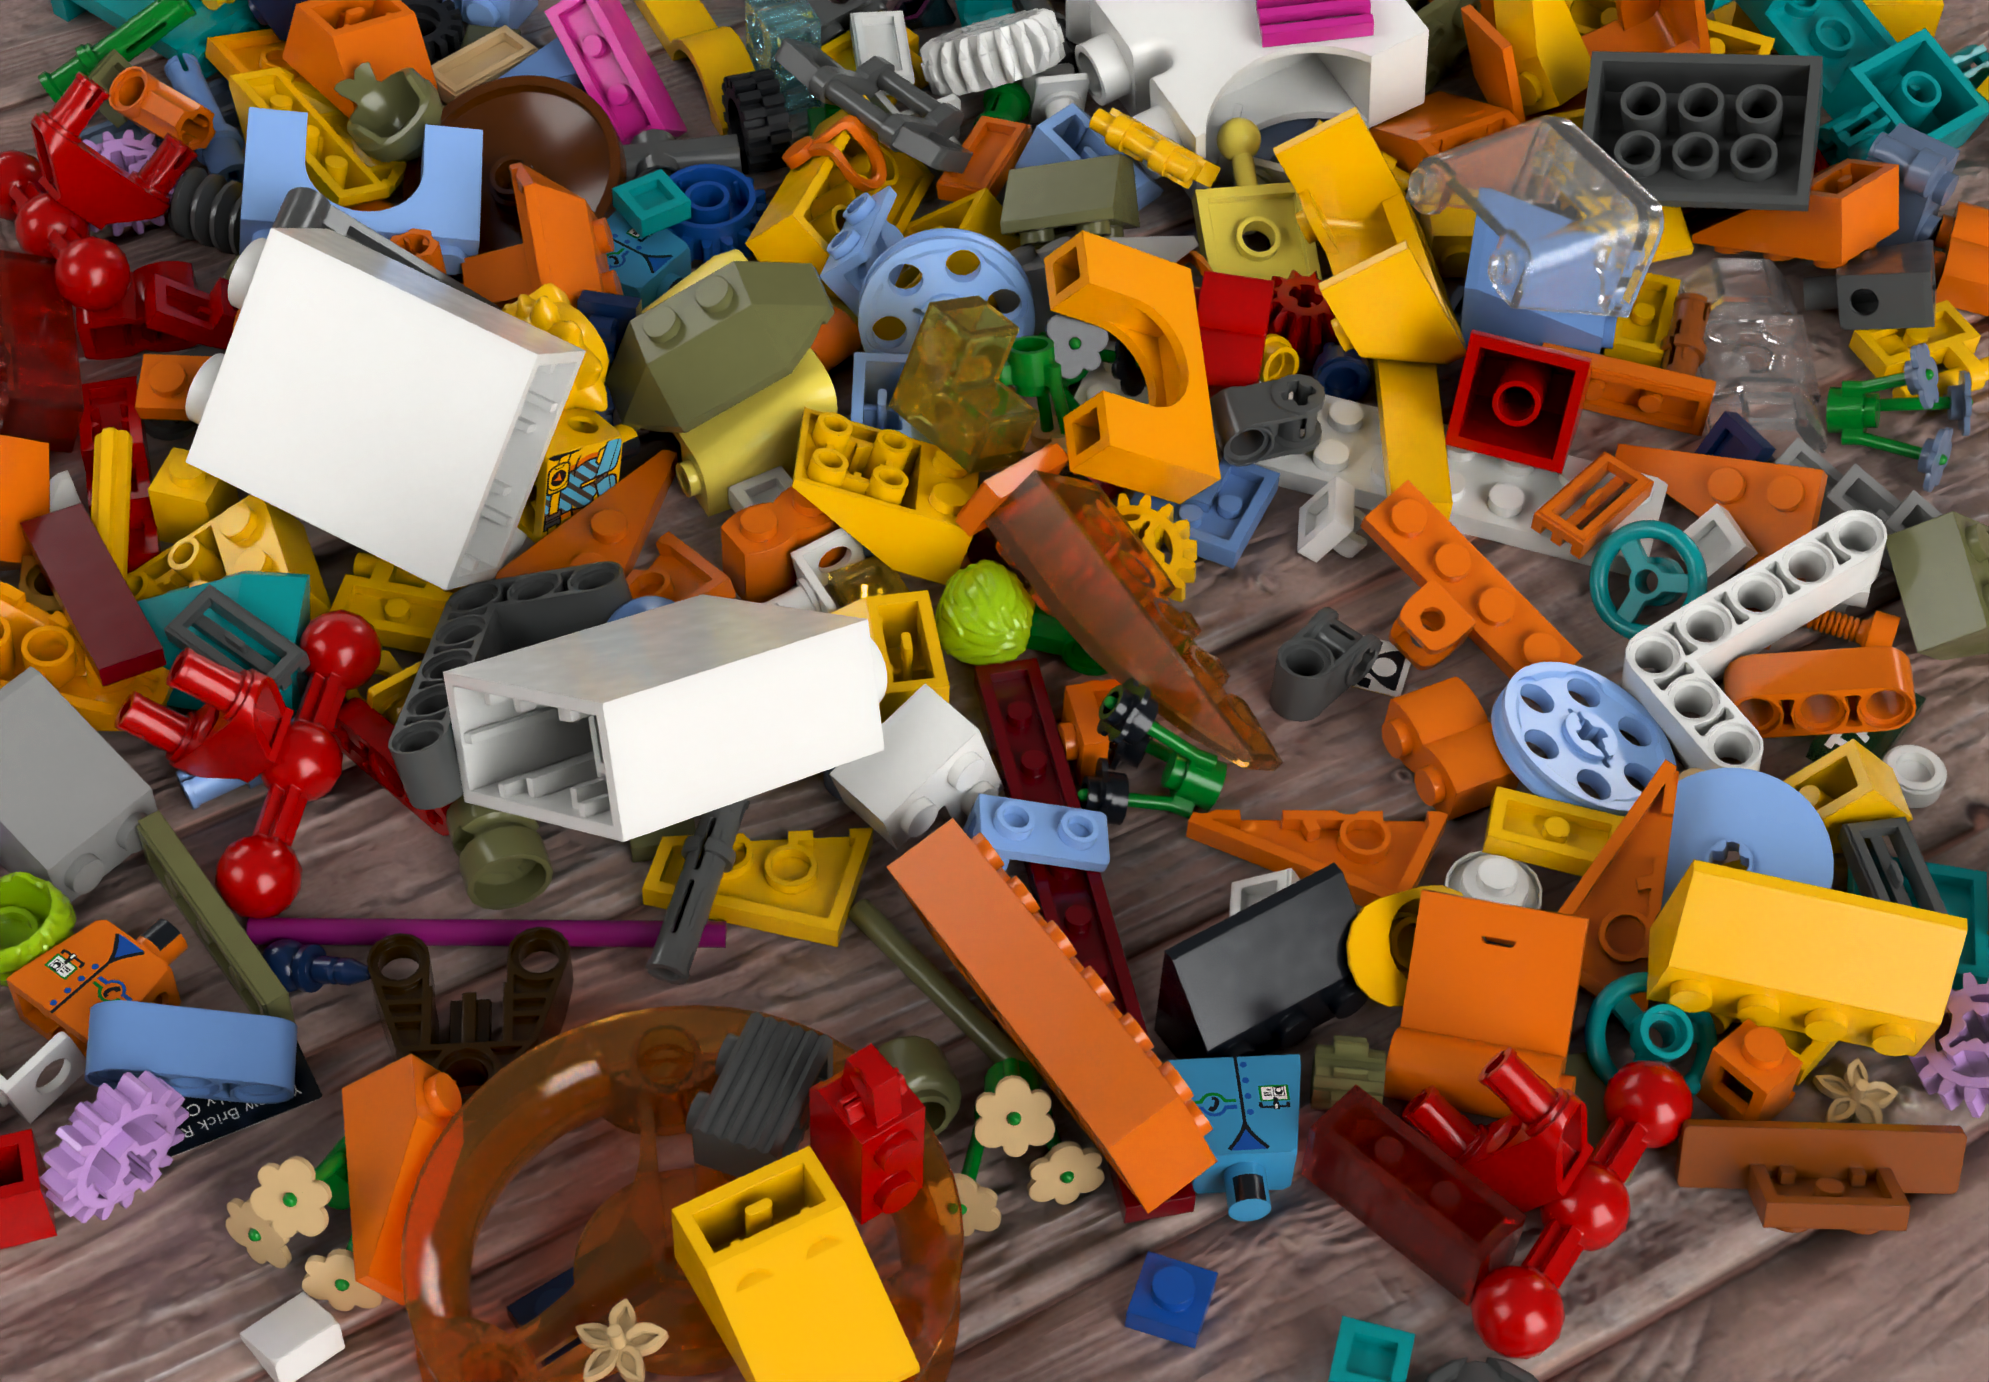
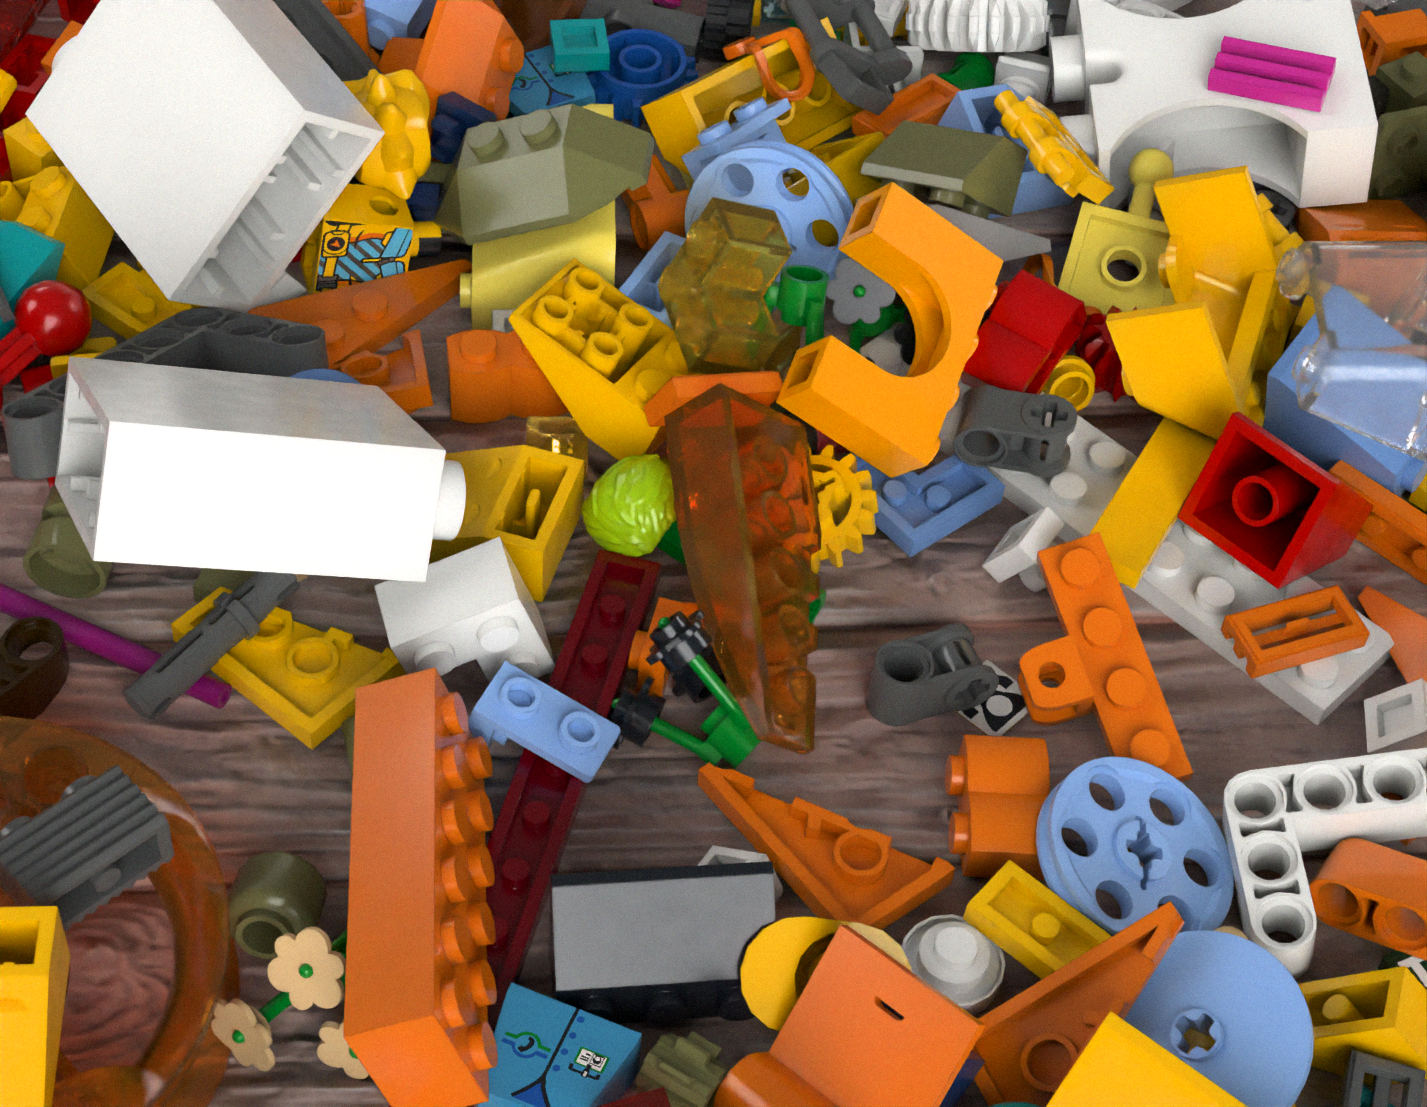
camera: 25 degrees right, 0 degrees up
(811, 578) = (504, 421): white bracket -> none
(869, 1134) = (128, 921): red hinge -> none
(1342, 372) = (1127, 421): dark blue tile -> none
(1670, 575) = (1311, 726): teal piece -> none

